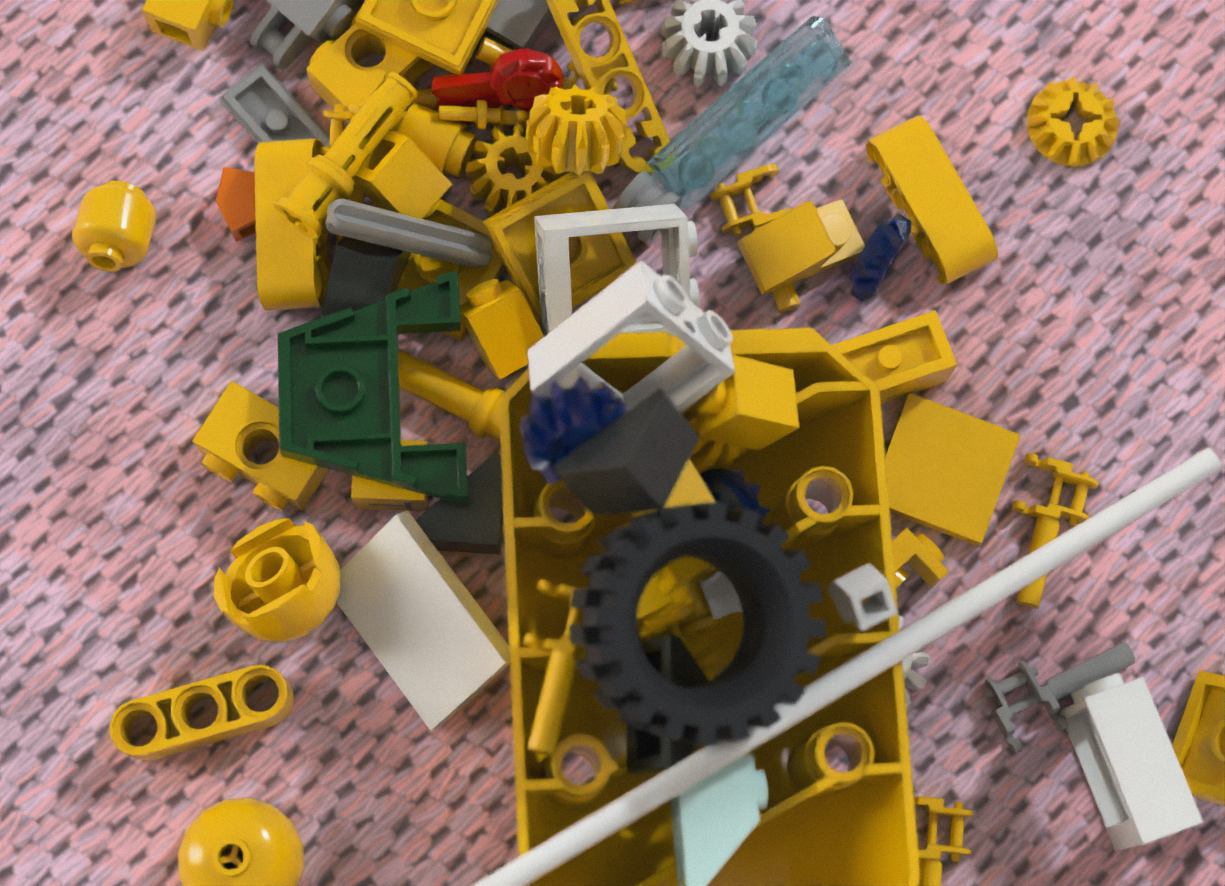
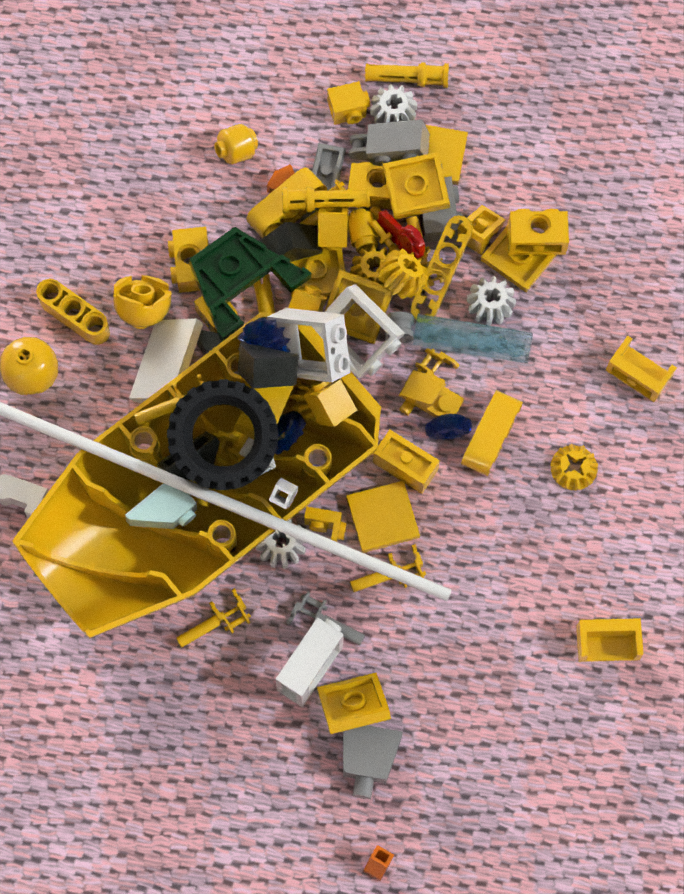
camera: 55 degrees right, 5 degrees down
(408, 233) = (312, 245): light grey axle -> none

